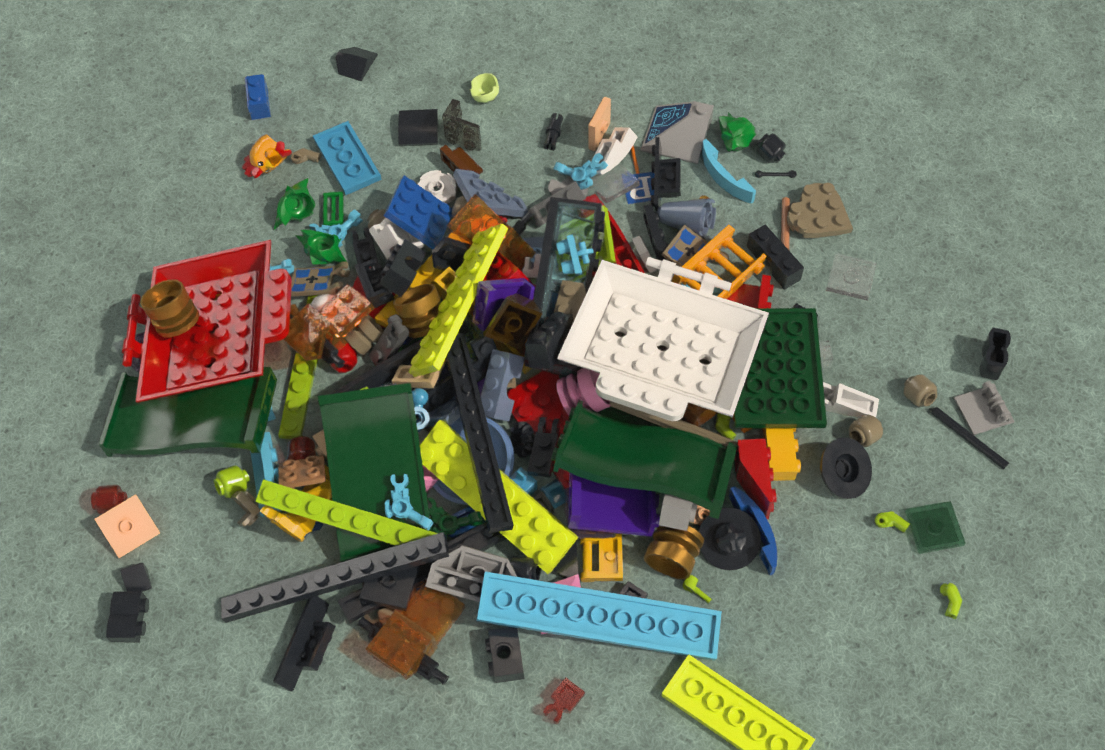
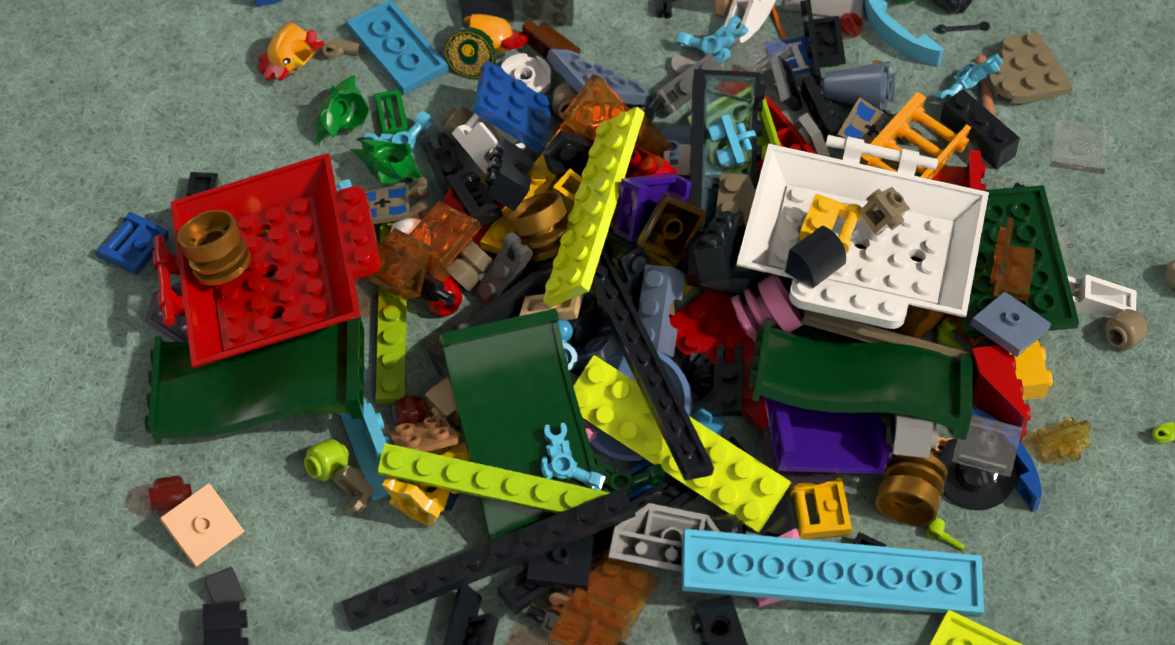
camera: 10 degrees left, 5 degrees down
(120, 303) = (138, 247): none -> blue plate
(183, 252) = (201, 182): none -> black plate
(395, 164) = (468, 51): none -> tile
(416, 155) = (499, 30): none -> light orange piece
(554, 493) = (748, 436): dark azure slope -> none
(619, 358) = (816, 257): none -> black brick
(631, 209) = (785, 83): none -> black plate
(631, 326) = (825, 212): none -> yellow plate
(681, 322) = (884, 210): none -> dark tan brick
(689, 165) = (851, 24): none -> clear red plate
(739, 520) = (989, 446): none -> clear plate
(771, 422) = (1010, 324): none -> sand blue plate
(774, 213) = (970, 75): none -> medium azure piece
(778, 374) = (1011, 266): none -> clear orange bracket
(802, 521) = (1066, 441): none -> clear yellow hips
(846, 468) = (1108, 374): black hat -> none

